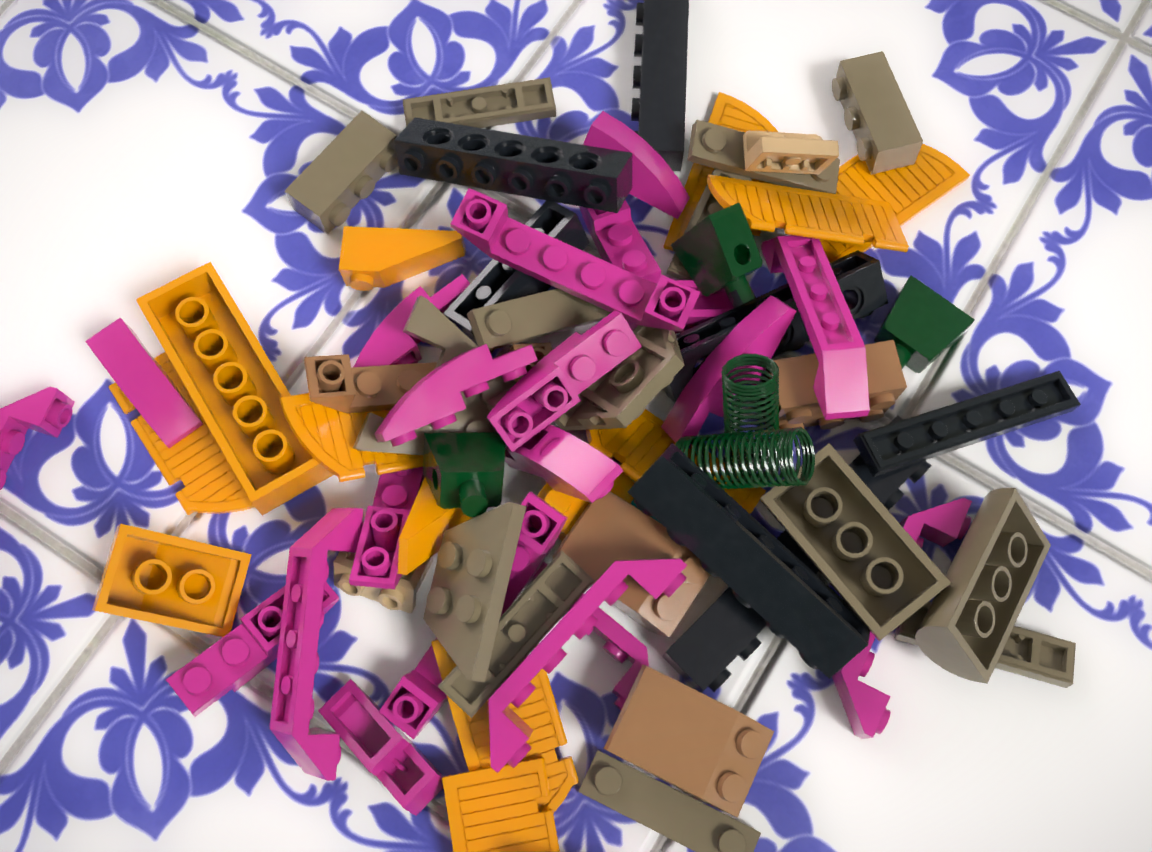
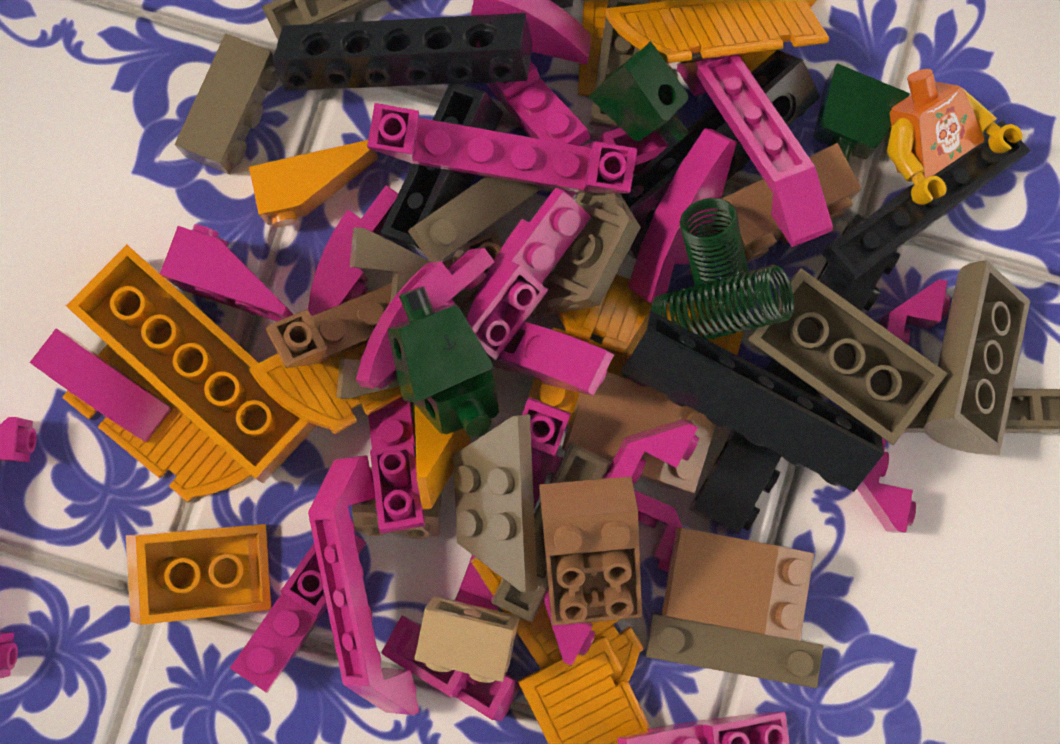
camera: 15 degrees left, 10 degrees up
(278, 307) = (208, 268): none -> dark pink slope
(401, 715) = (466, 639): none -> tan brick
(454, 416) = (433, 347): none -> dark green torso
(547, 658) = (592, 550): none -> medium nougat slope
(996, 357) = (936, 129): none -> torso

